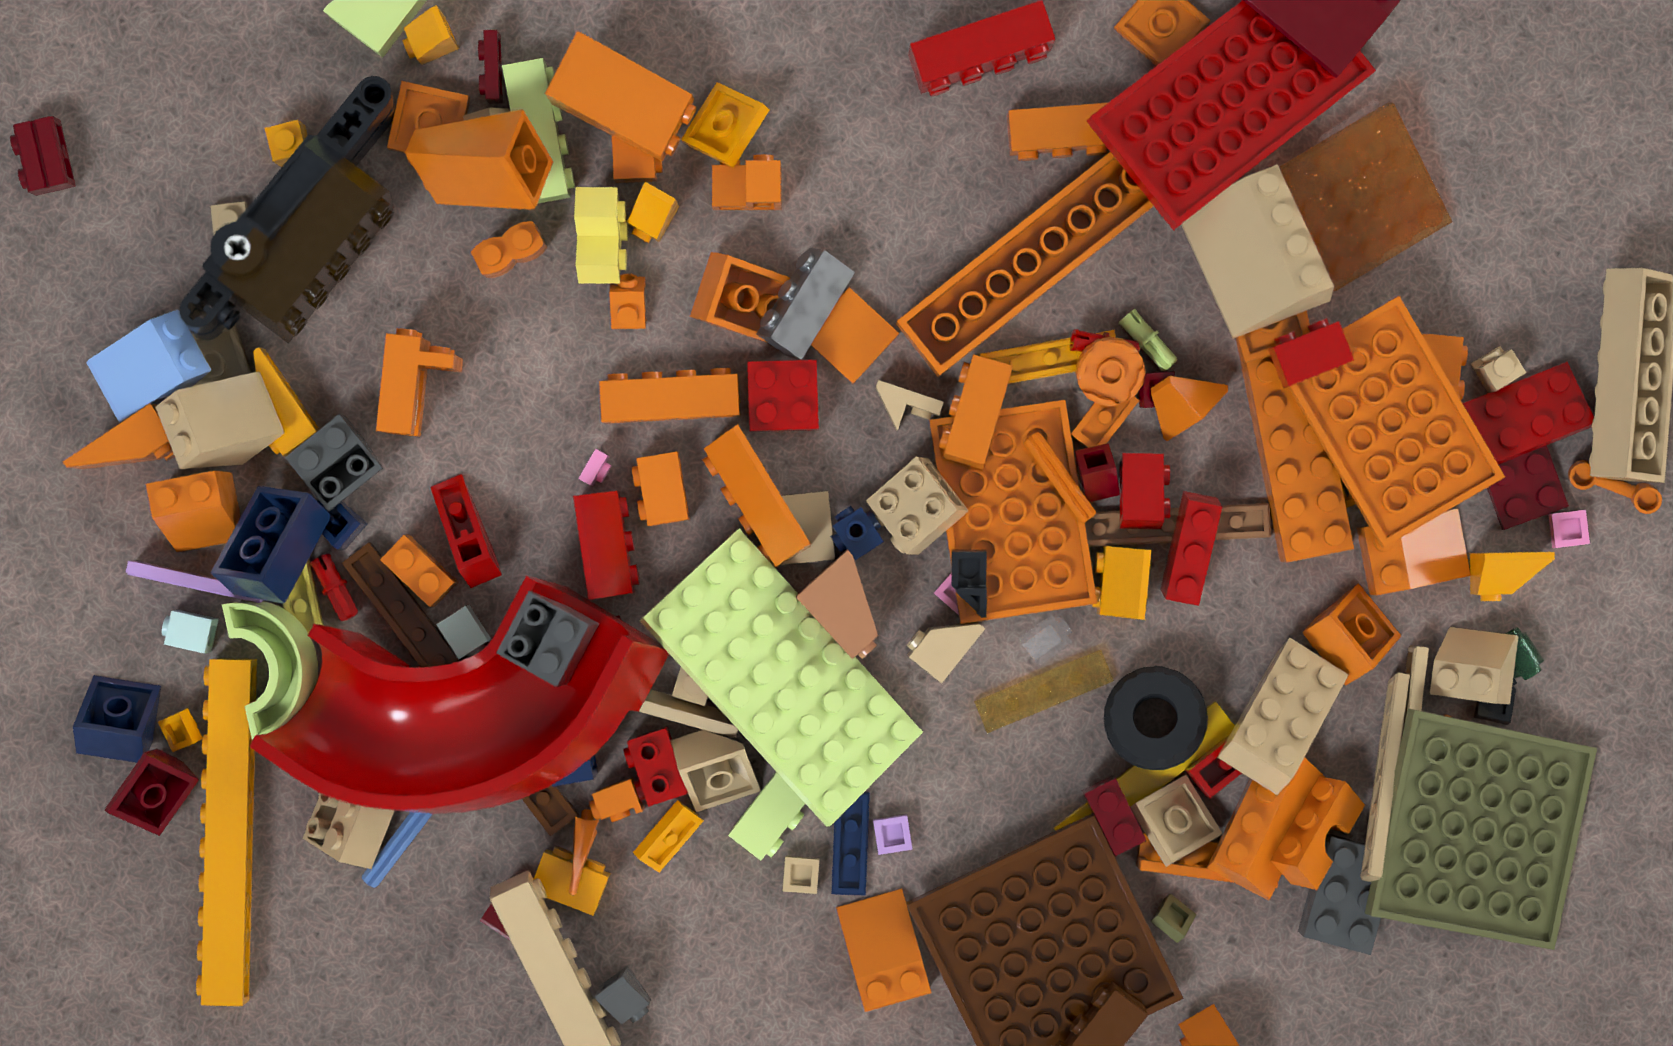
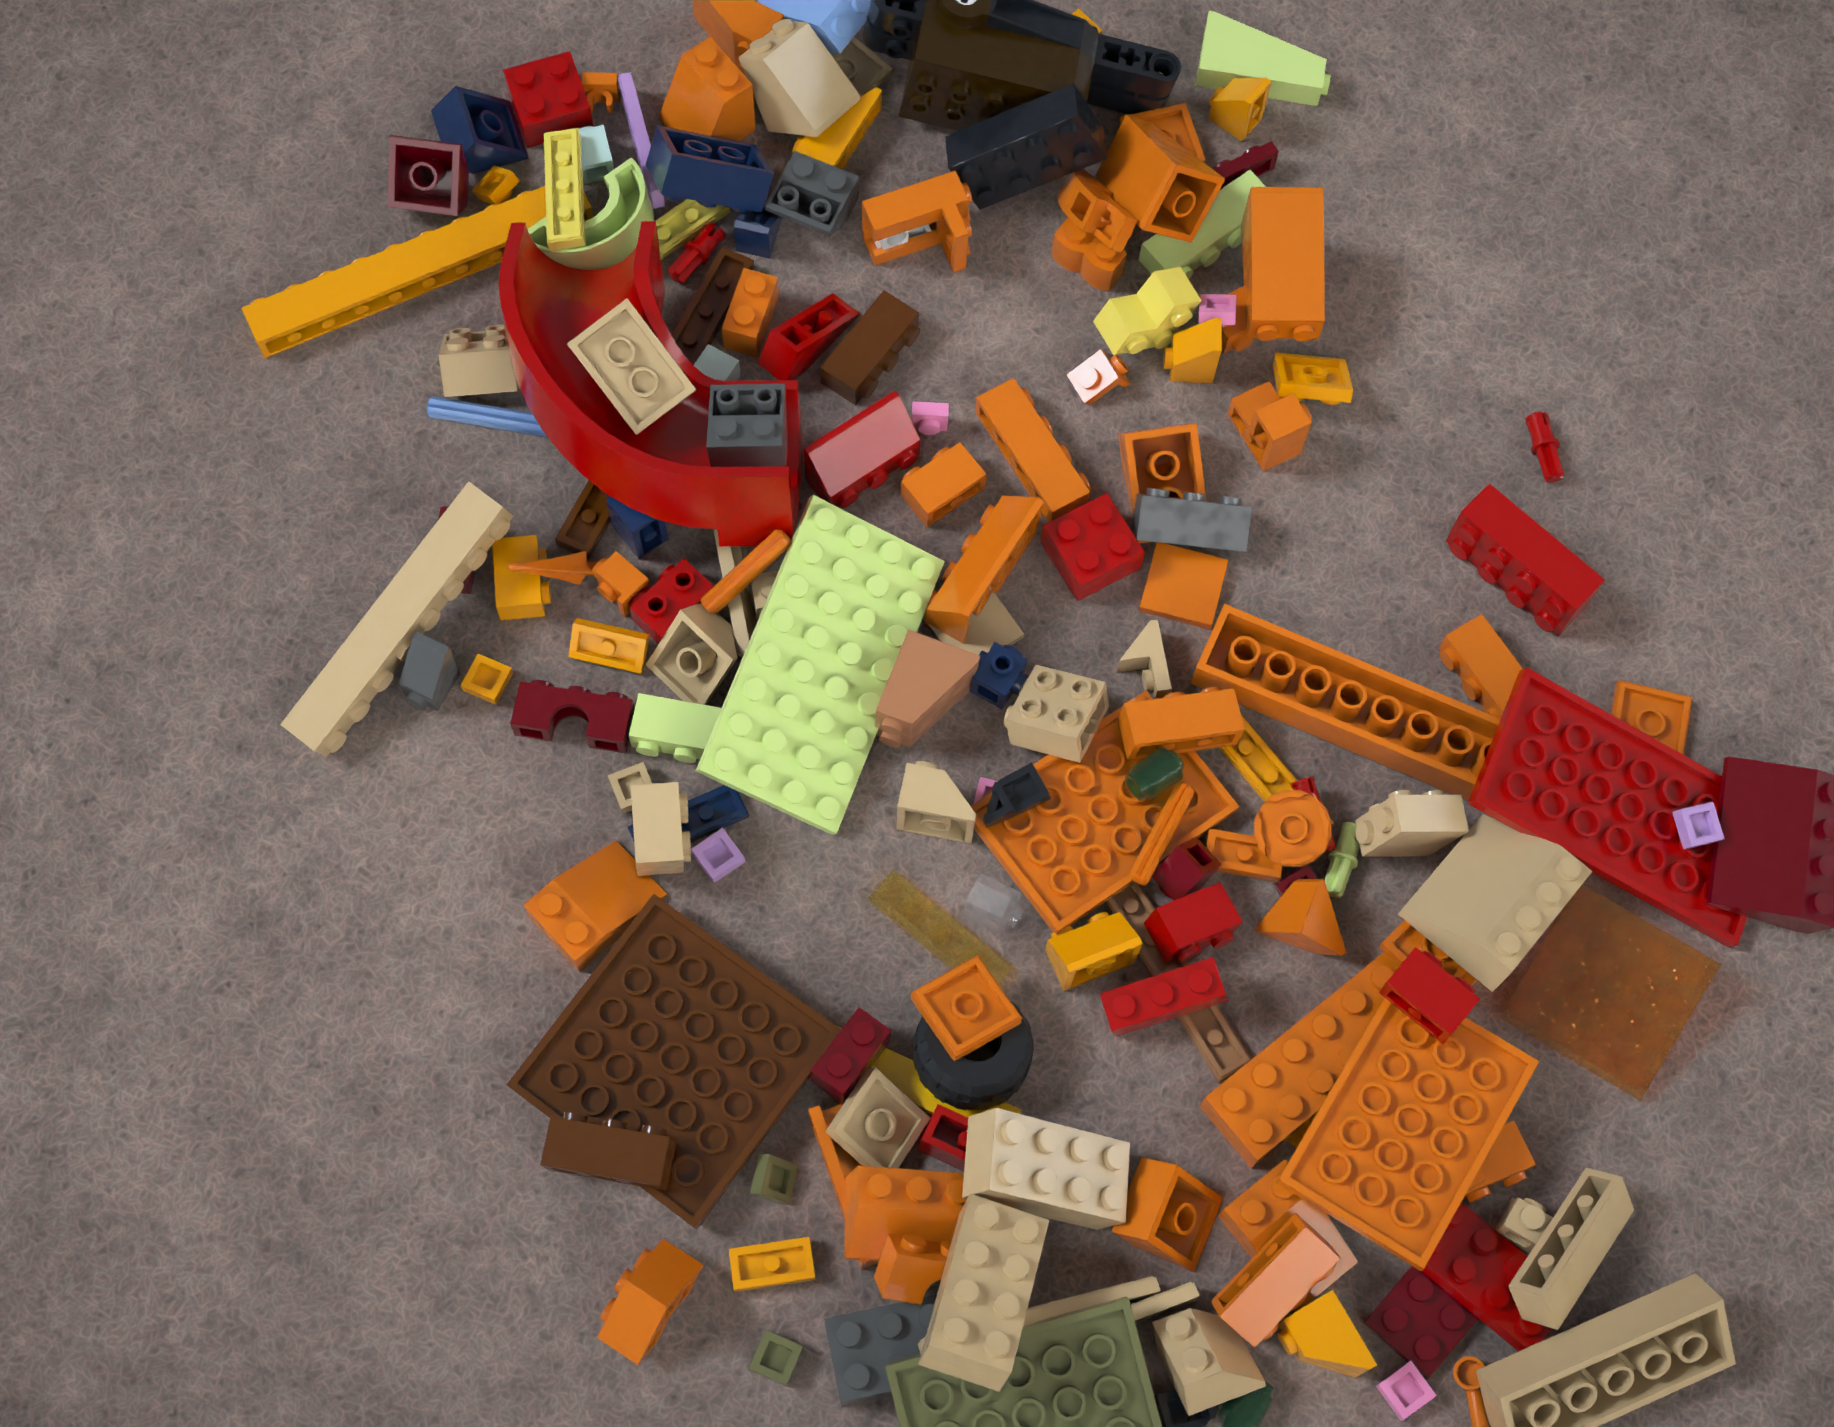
camera: 55 degrees right, 20 degrees down
(115, 644) = (547, 97): none -> red brick
(126, 592) = (601, 88): none -> orange tile
(226, 679) = (564, 189): none -> light yellow tile
(393, 258) = (1026, 146): none -> black brick
(452, 715) = (631, 366): none -> tan plate
(477, 234) = (1094, 211): none -> orange slope
(505, 484) = (870, 348): none -> reddish brown brick
(629, 175) = (1218, 307): none -> bright pink plate
(646, 948) = (487, 679): none -> light orange plate
(673, 700) = (746, 571): none -> orange axle
(732, 868) = (542, 706): none -> dark red arch
(858, 878) = (658, 833): none -> tan brick
(1010, 457) = (1154, 774): none -> clear green brick
(1128, 712) = (966, 1008): none -> orange tile
(1156, 276) = (1411, 824): none -> tan brick
(1235, 950) = (771, 1264): none -> light orange plate
(1276, 49) = (1698, 825): none -> lavender plate
(1306, 981) = (776, 1358): none -> olive plate
(1360, 818) = (984, 1293): none -> tan brick
(1448, 586) = (1275, 1280): none -> orange brick
(1539, 349) = (1571, 1248): none -> tan brick

